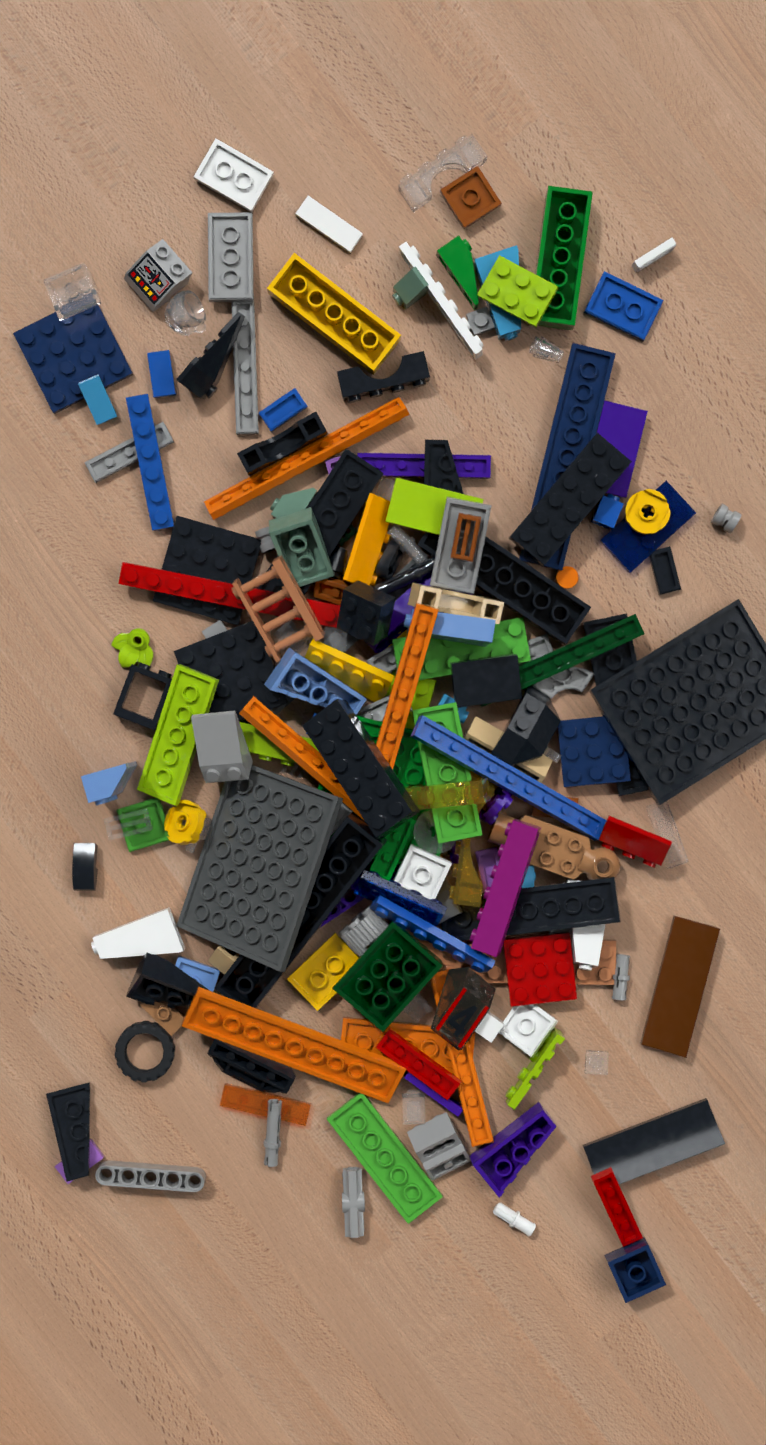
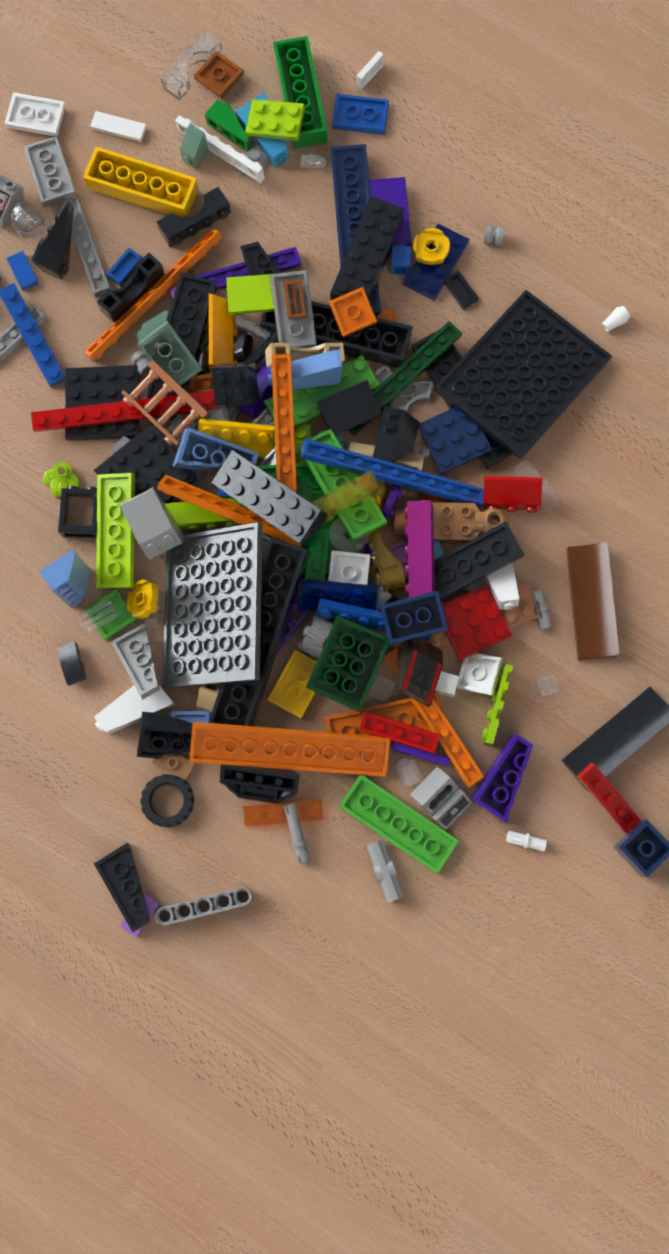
camera: 15 degrees left, 10 degrees down
(159, 889) = (137, 658): none -> light grey wing
(476, 955) = (414, 617): none -> dark blue brick
(528, 570) = (353, 312): none -> orange tile

